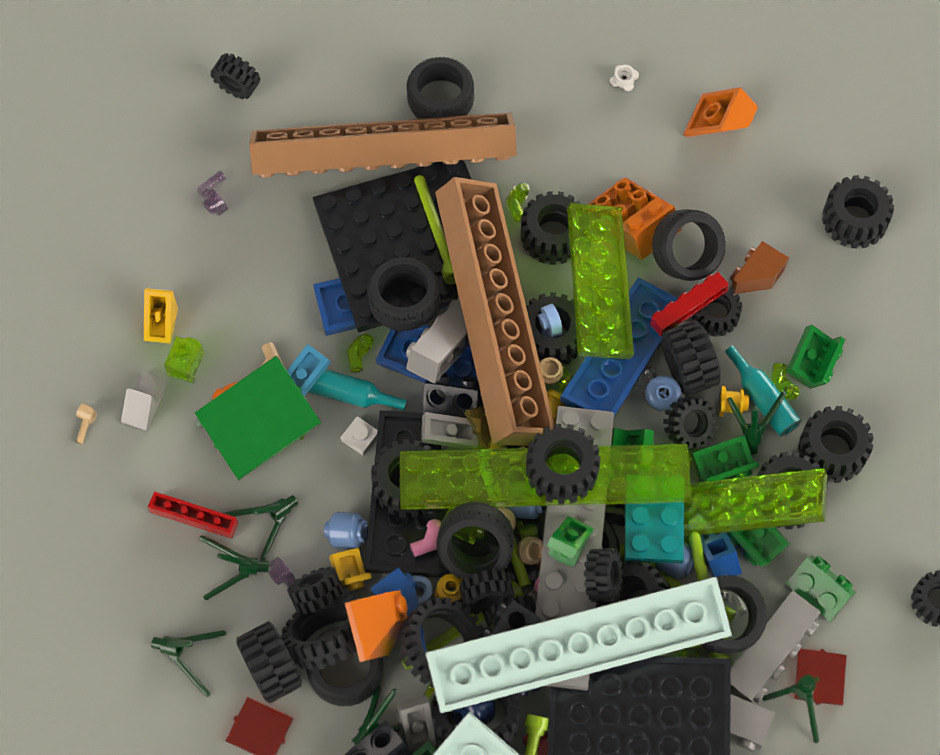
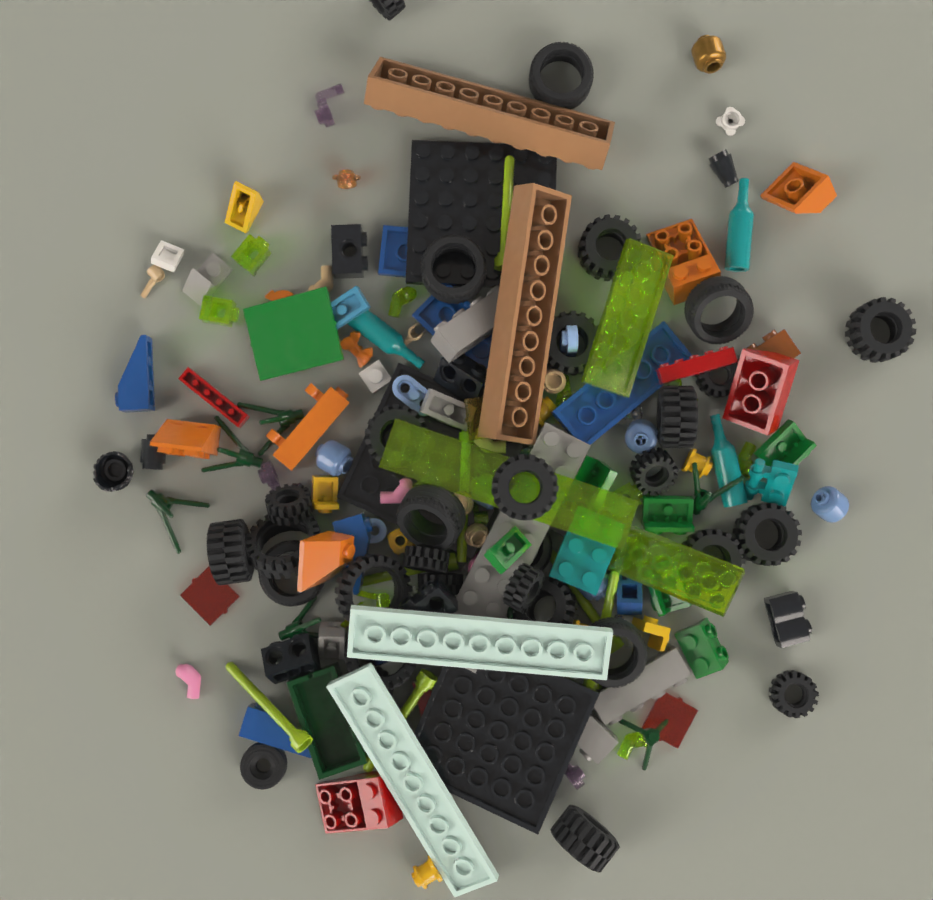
camera: 15 degrees right, 20 degrees up
(94, 391) = (167, 256): none -> white plate
(102, 529) = (137, 382): none -> blue slope
(106, 629) = (113, 471): none -> black hair
(144, 595) = (149, 456): none -> black brick
(162, 420) = (211, 307): none -> clear neon green brick
(181, 564) = (187, 439): none -> orange slope
(258, 254) = (346, 179): none -> clear orange plate
(286, 336) = (341, 238): none -> black brick
(309, 509) = (311, 427): none -> orange brick
(336, 418) = (351, 344): none -> orange piece
(382, 381) = (412, 335): none -> tan hand
(410, 429) = (413, 396): none -> light blue plate
(516, 199) = (587, 206): clear neon green arm -> none
(577, 26) = (708, 54): none -> pearl gold head
(636, 120) = (724, 168): none -> black cone
(678, 171) = (739, 232): none -> teal piece
(764, 304) = (760, 390): none -> red slope
(766, 583) = (659, 634): none -> yellow bracket
(789, 714) = (630, 741): none -> clear neon green arm
(823, 383) = (778, 483): none -> teal plate
(886, 392) = (829, 504): none -> medium blue head
(896, 522) = (788, 619): none -> black brick

